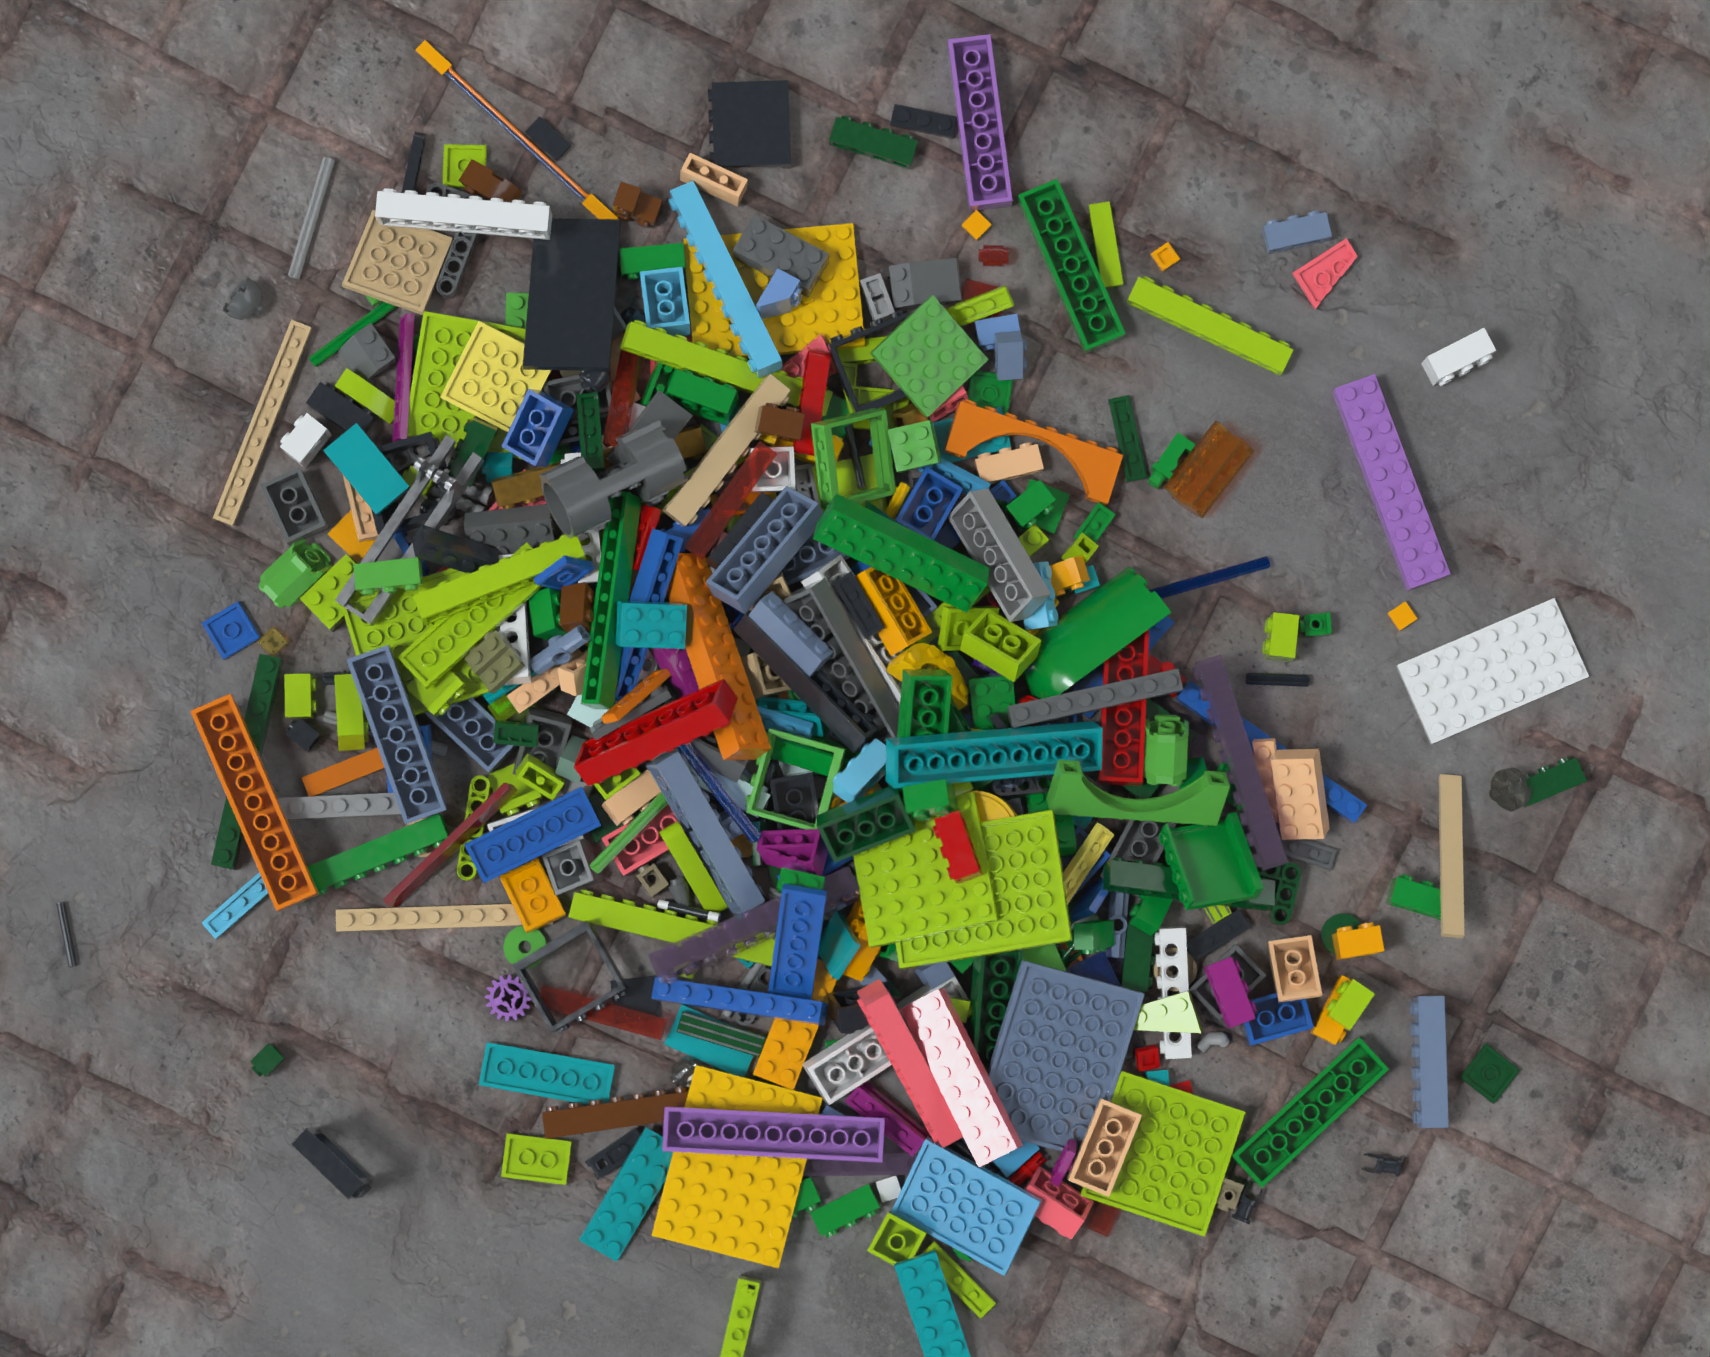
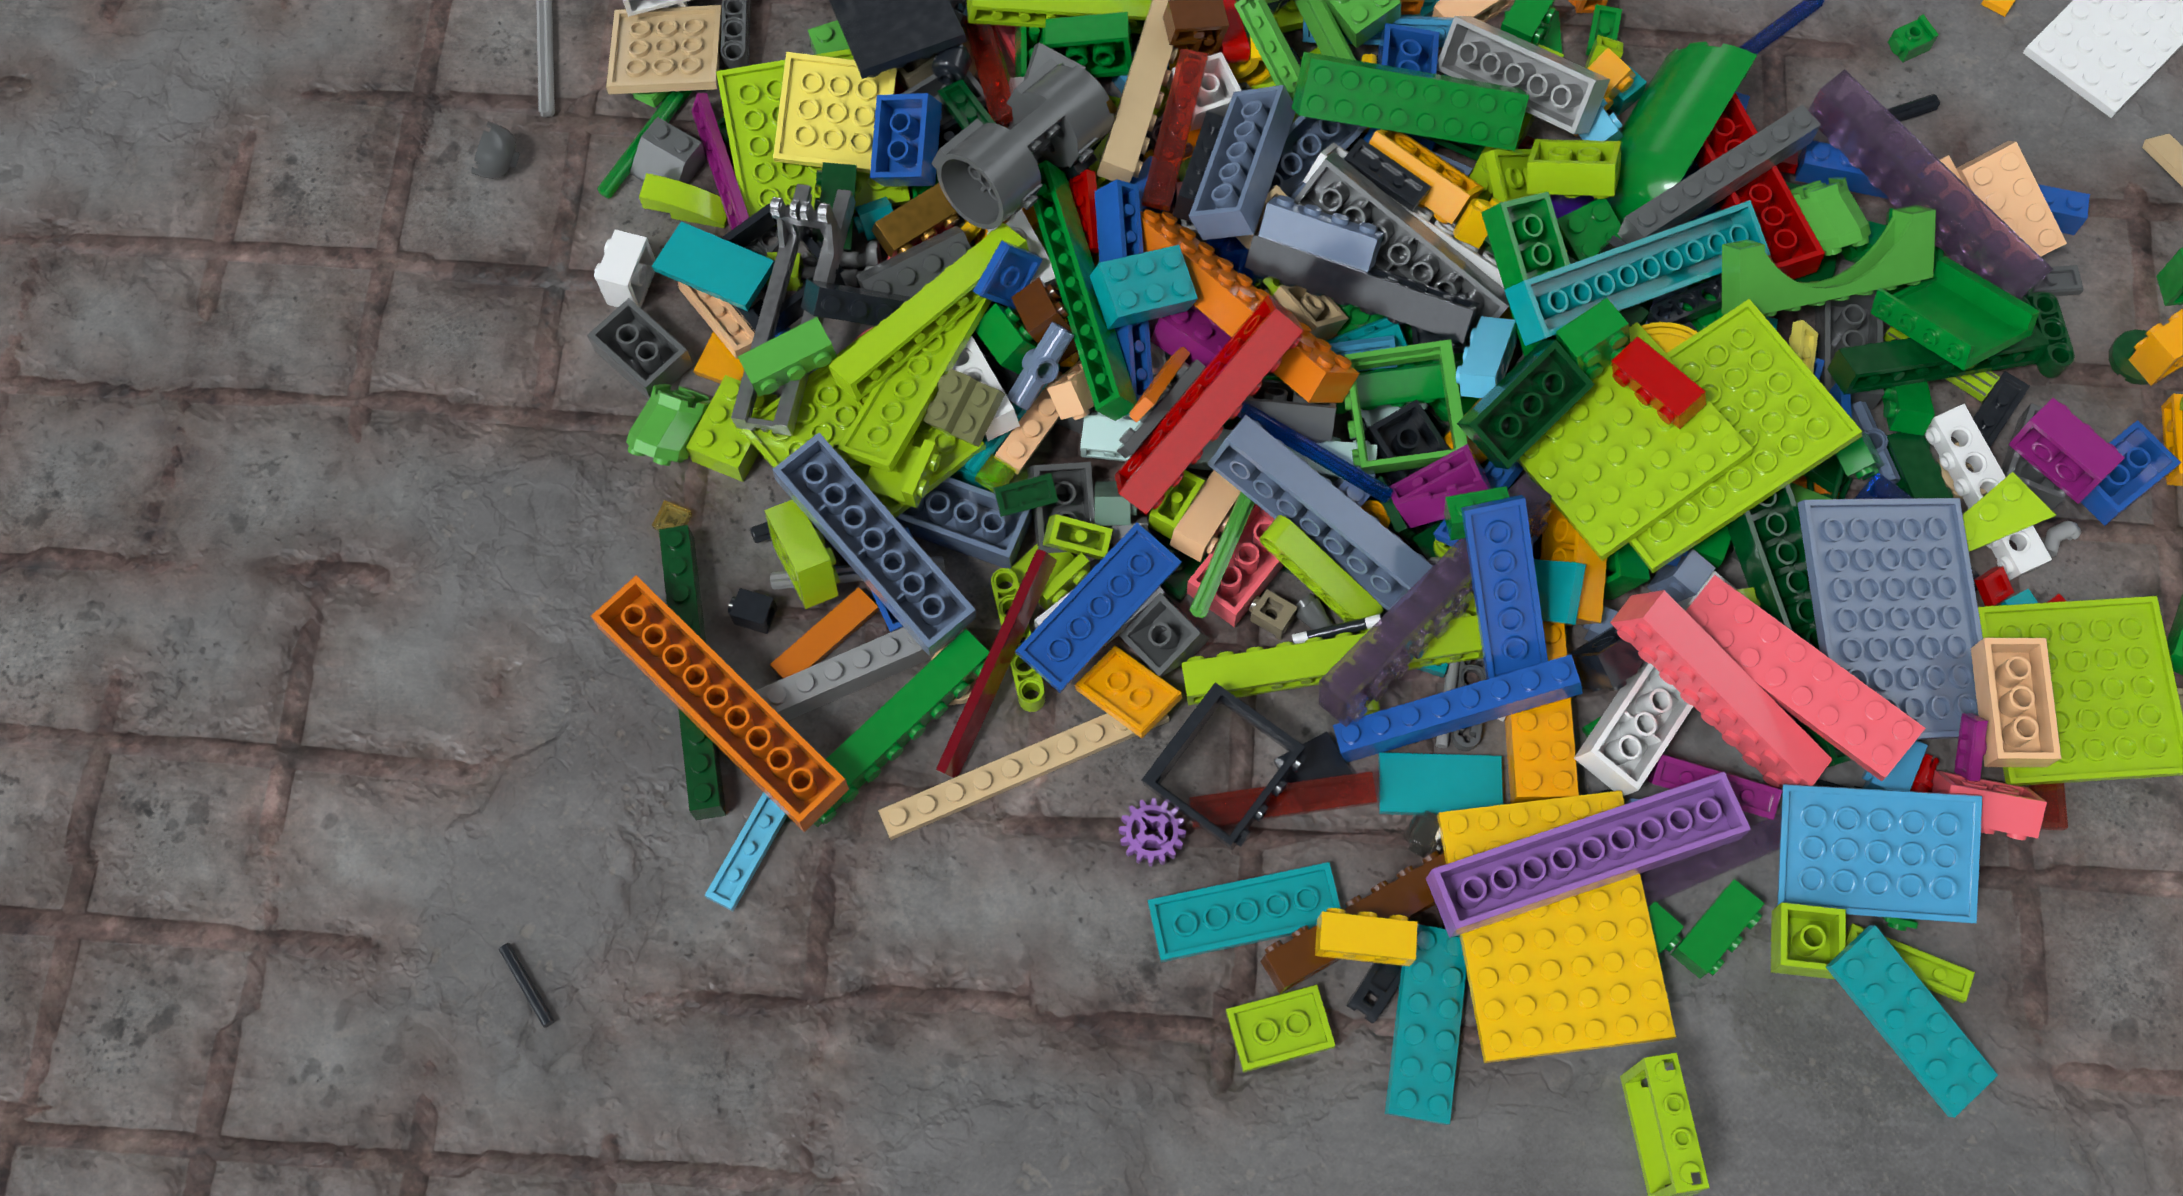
camera: 15 degrees left, 15 degrees down
(231, 630) = (613, 526): blue tile -> none
(262, 423) = (566, 281): tan plate -> none
(267, 1060) = (862, 1042): dark green brick -> none
(299, 696) = (729, 566): lime brick -> none
(332, 1163) = (1007, 1137): black window -> none
(339, 409) = (654, 223): black brick -> none
(513, 940) = (1130, 751): bright green tile -> none
(610, 1128) = (1366, 937): none -> yellow brick
(720, 1034) = (1448, 767): dark green tile -> none
(888, 1188) = (1759, 878): white slope -> none
(1281, 637) = (1885, 58): lime brick -> none
(1294, 968) = (2116, 403): light nougat slope -> none

